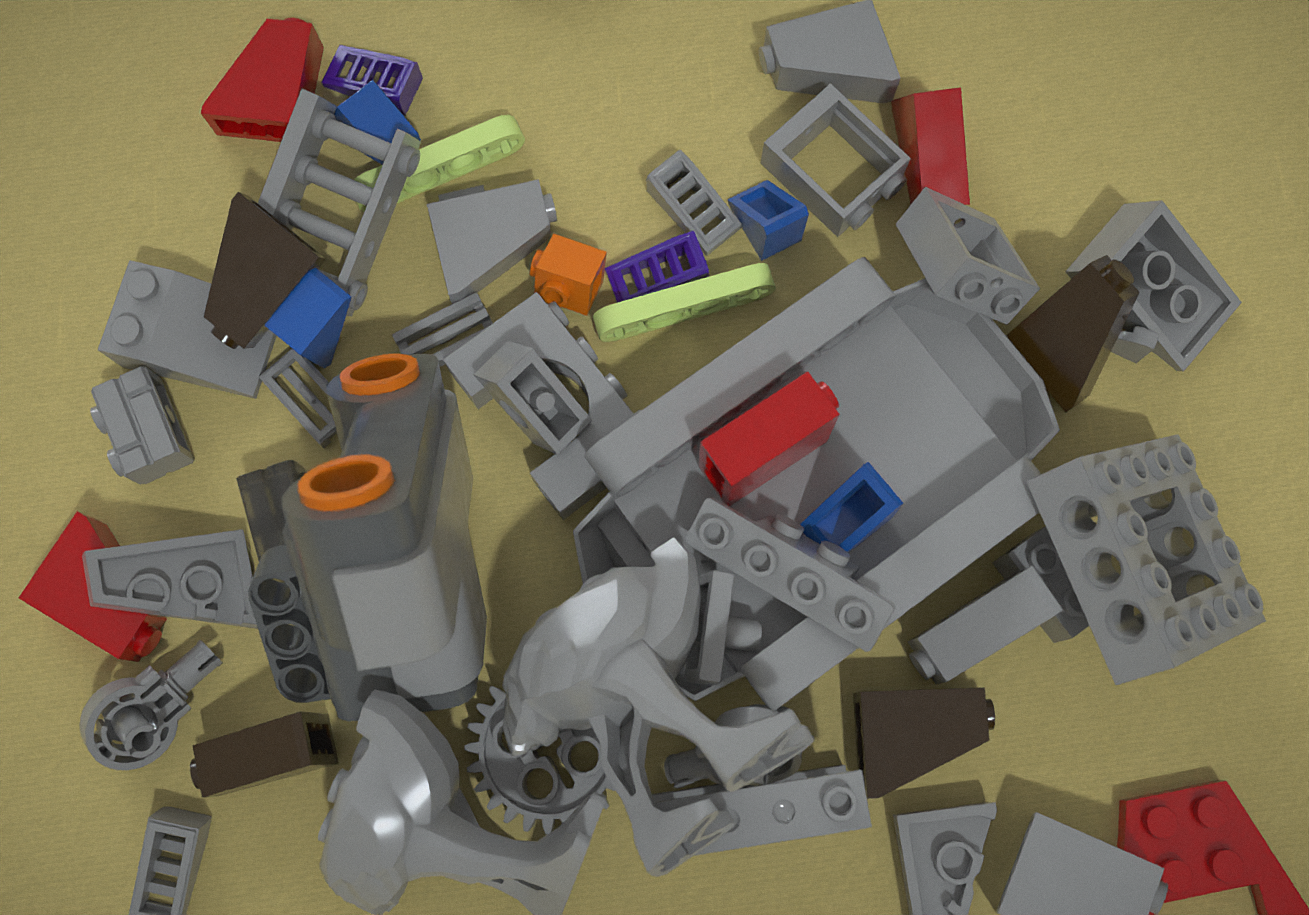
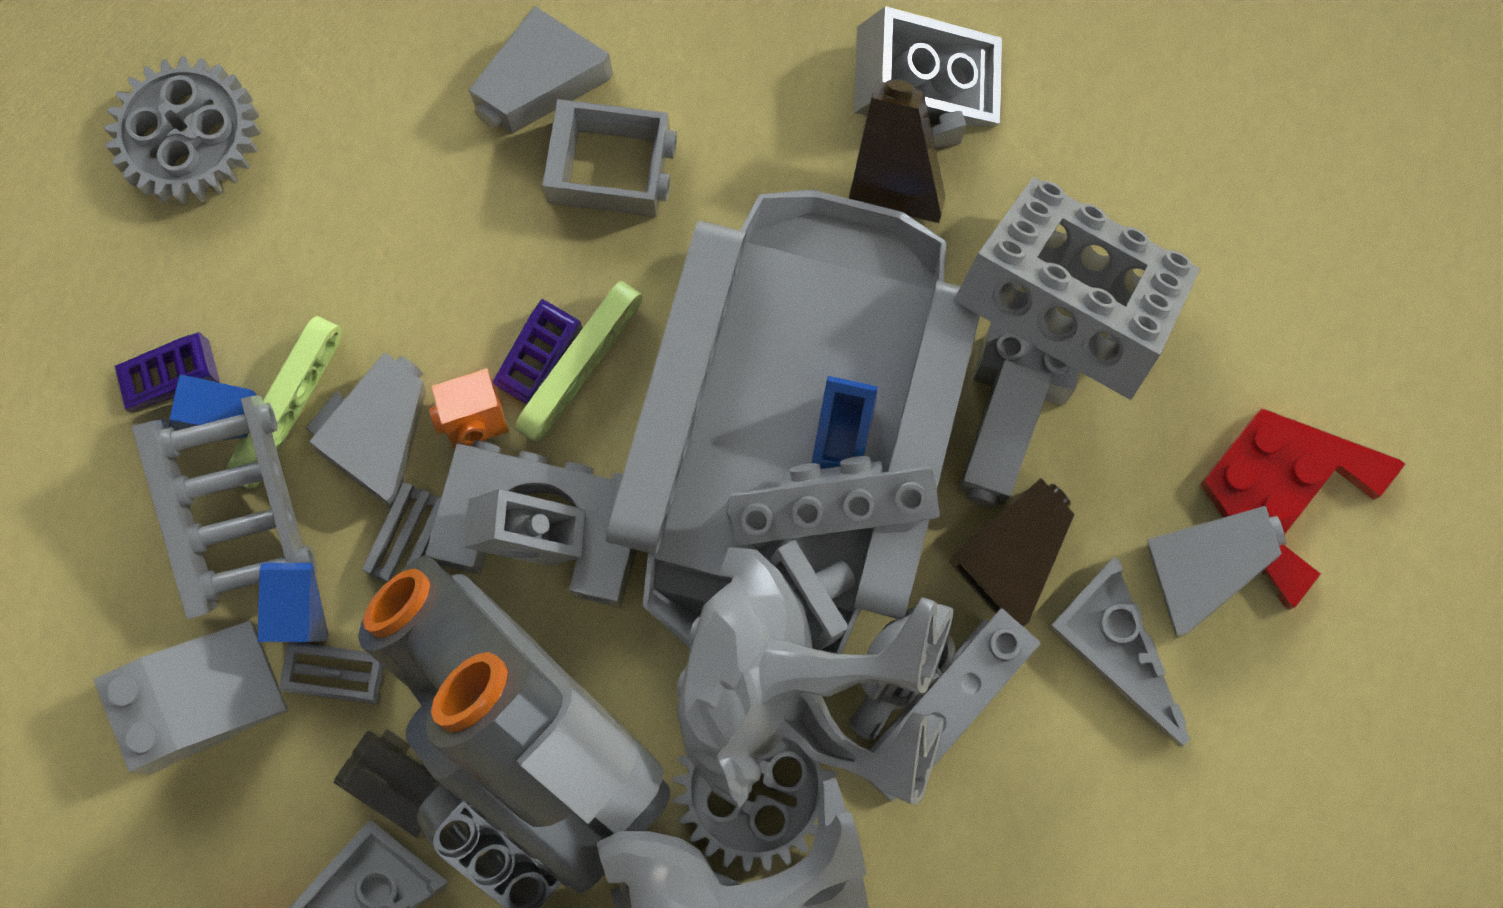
camera: 40 degrees left, 0 degrees up
(140, 426) = (213, 807): light grey brick -> none
(254, 272) = (216, 606): dark brown slope -> none
(265, 81) = (83, 445): red slope -> none
(681, 166) = (505, 257): light grey slope -> none
(768, 438) = (738, 416): red brick -> none
(769, 218) = (591, 242): blue slope -> none
(933, 136) = (672, 83): red slope -> none
(966, 260) = (775, 162): light grey window -> none

